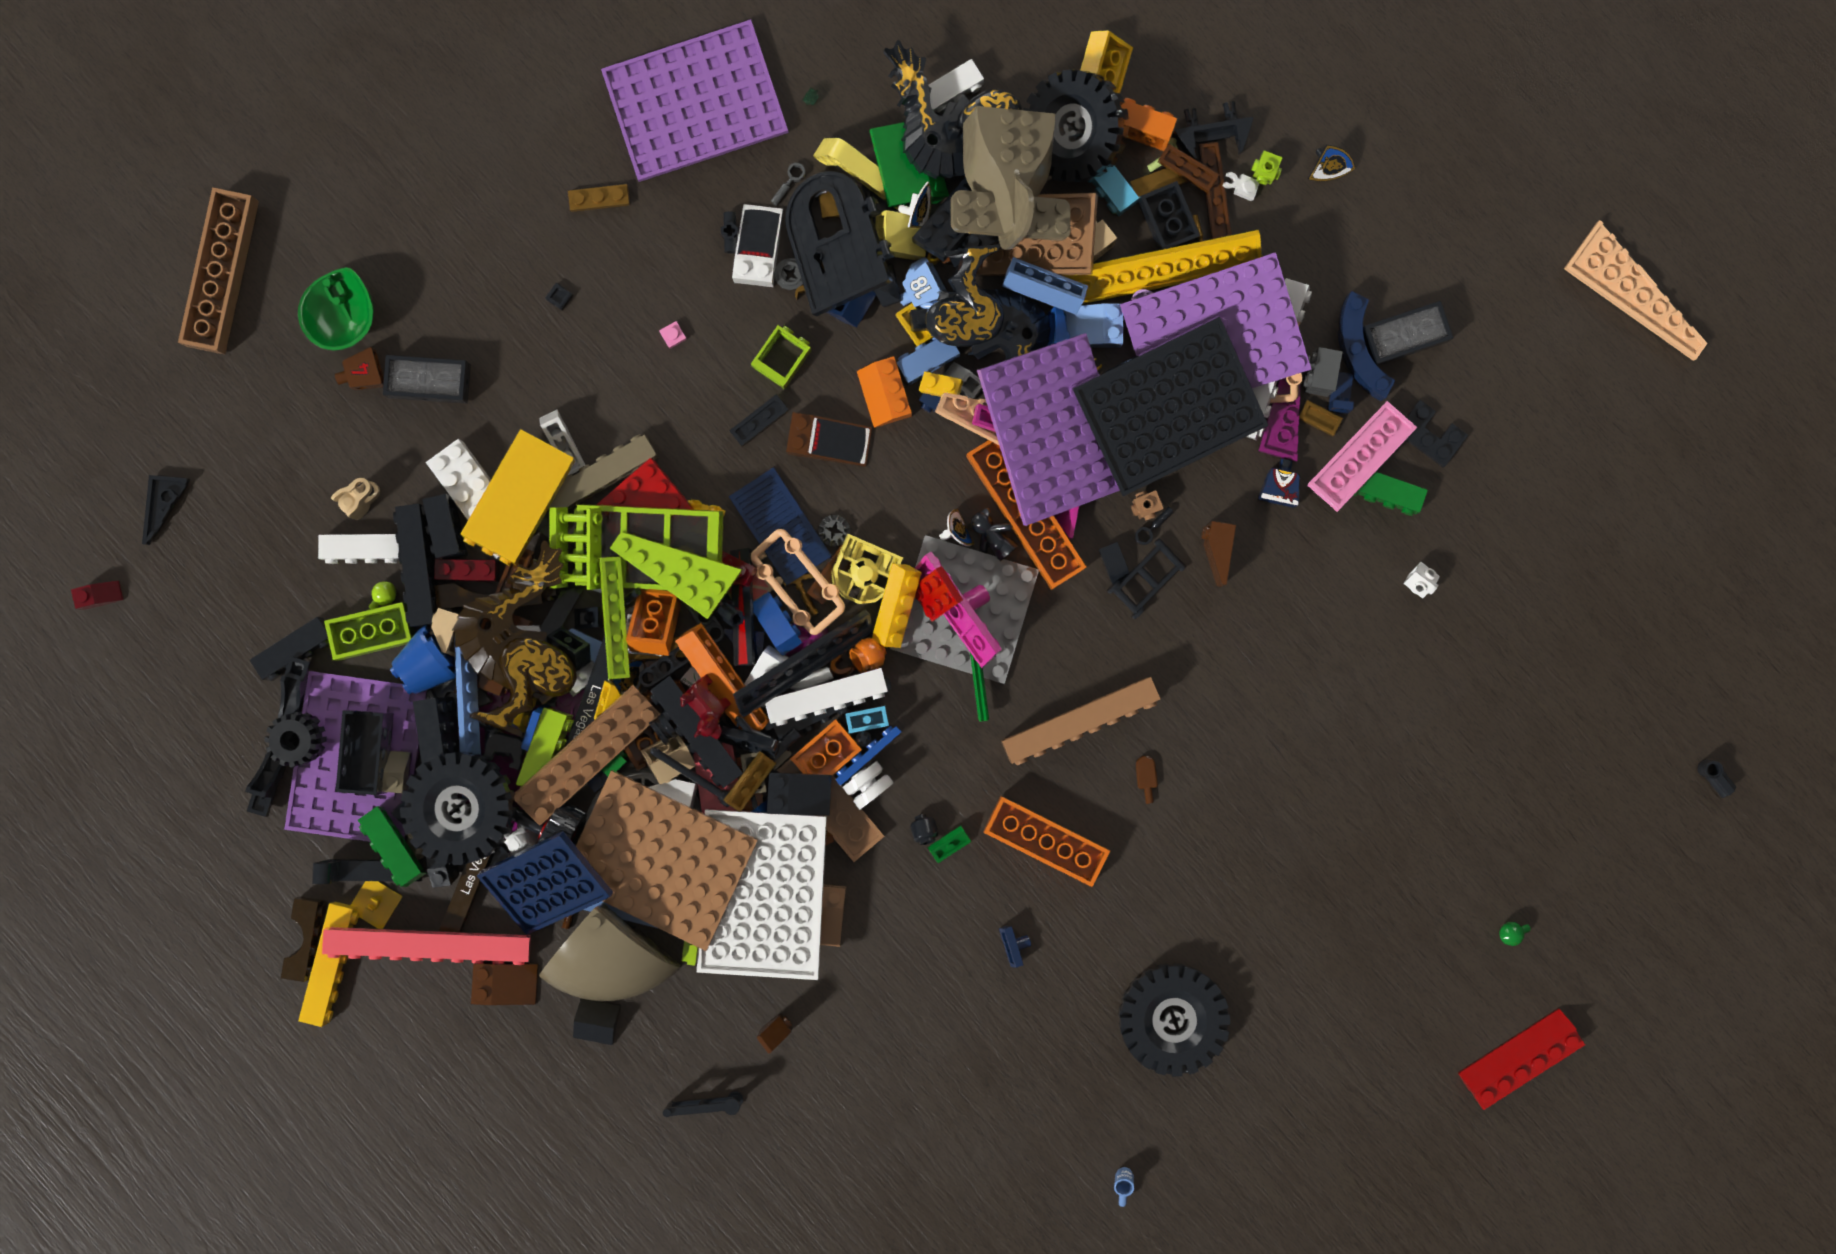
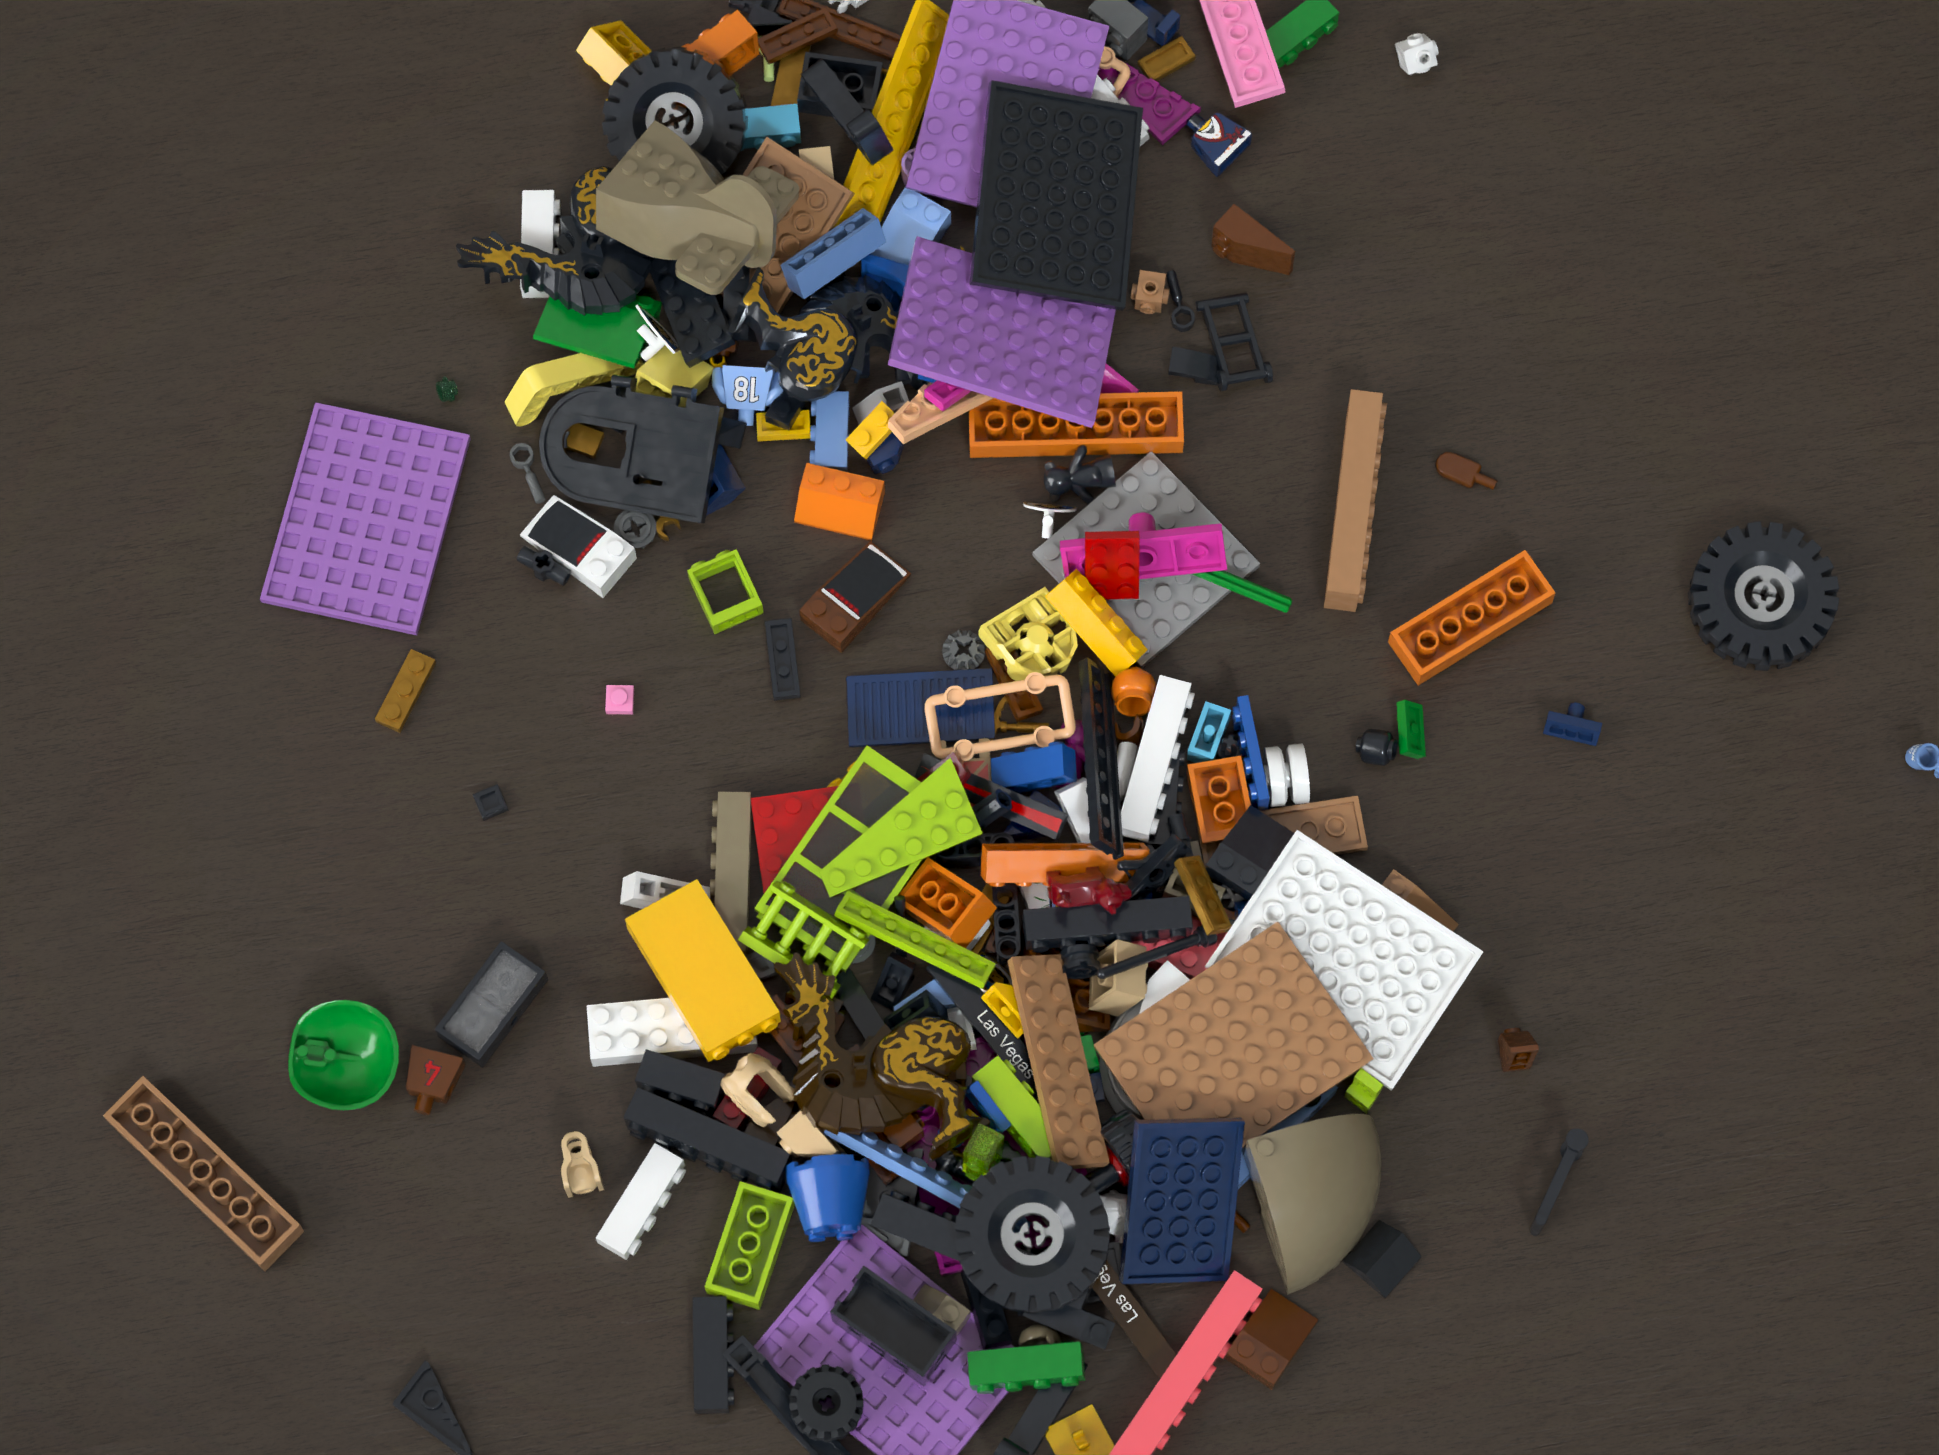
camera: 60 degrees left, 15 degrees down
(382, 594) = (713, 1208): lime piece -> none
(465, 565) = (735, 1085): none -> tan piece
(497, 744) = (982, 1152): none -> clear neon green brick
(1135, 255) = (857, 123): none -> black beam
(1513, 933) = (1876, 182): green piece -> none

